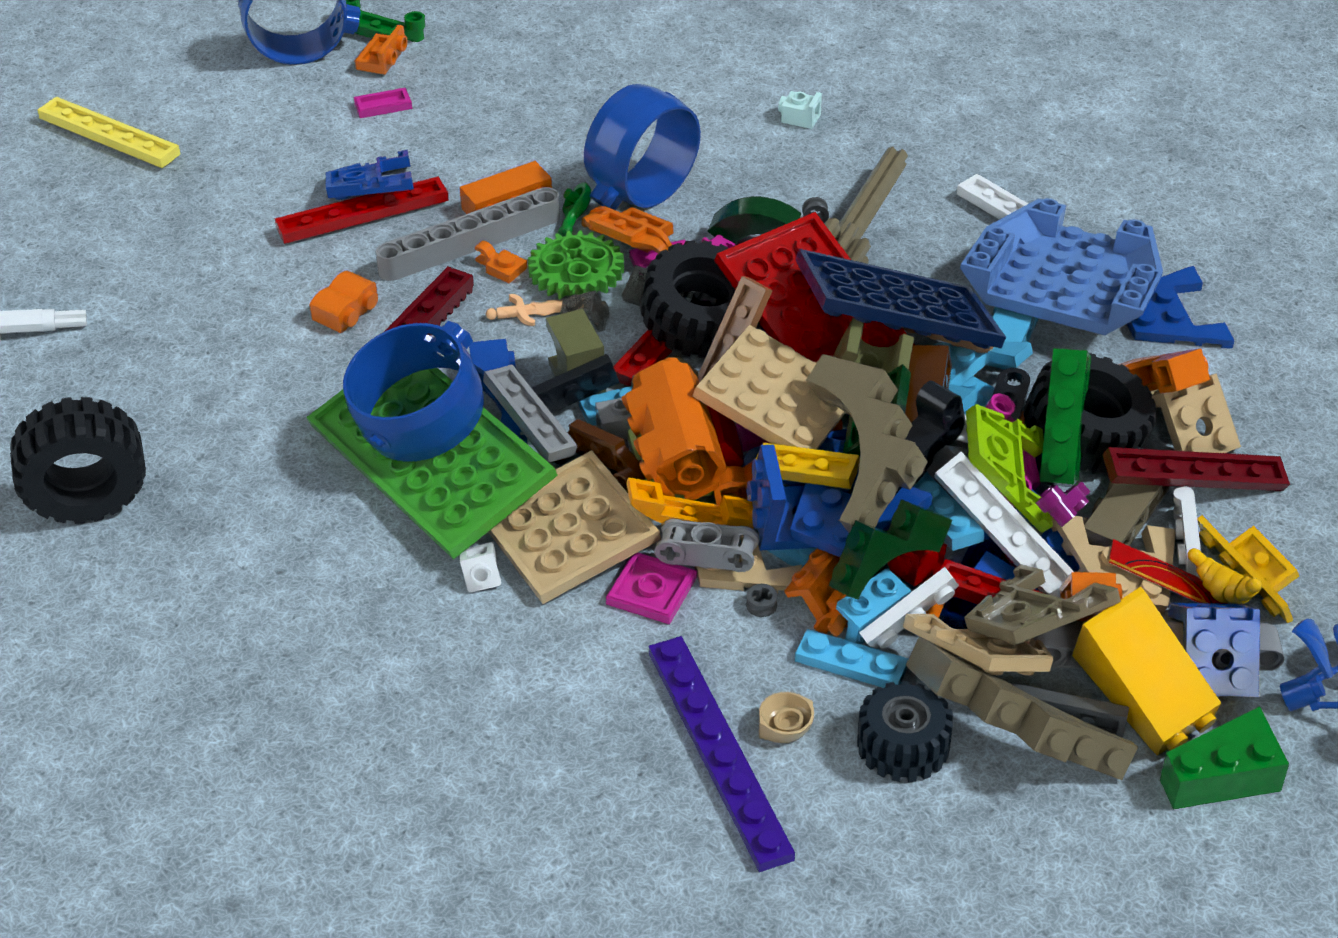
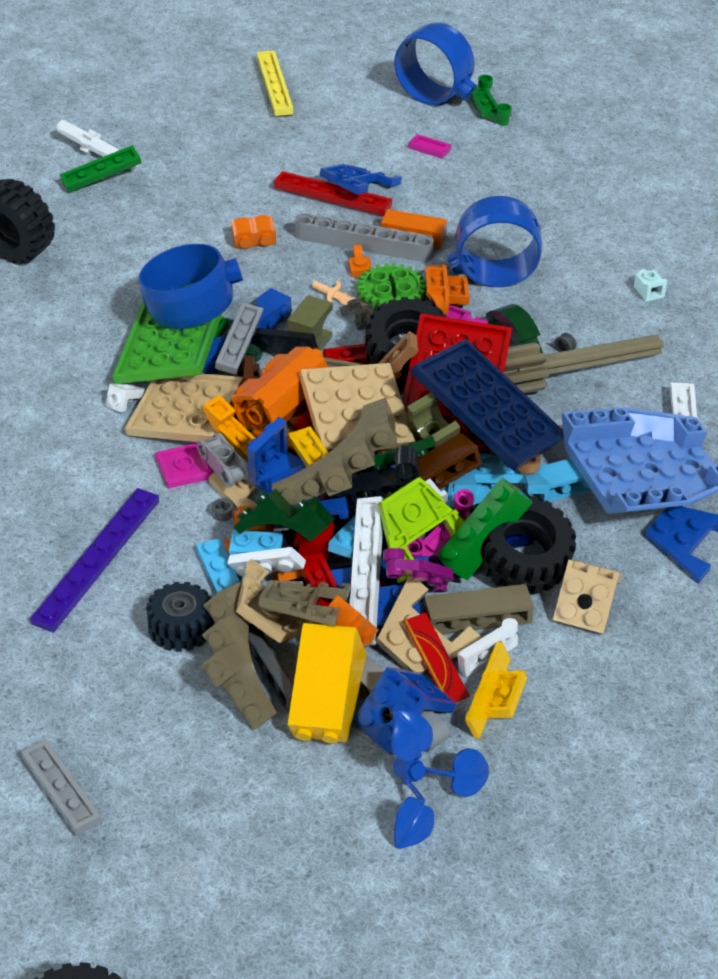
camera: 45 degrees right, 0 degrees up
(56, 344) = (100, 168): none -> green plate
(382, 51) = (466, 118): orange bracket -> none
(437, 299) = (286, 262): dark red gear -> none
(574, 206) = (436, 260): green piece -> none
(785, 717) = (144, 567): tan hat -> none
(1171, 371) = (586, 549): orange arch -> none
(1195, 469) = (536, 617): dark red plate -> none
(1222, 581) = (458, 681): yellow piece -> none
(1225, 763) = (309, 763): green wedge -> none

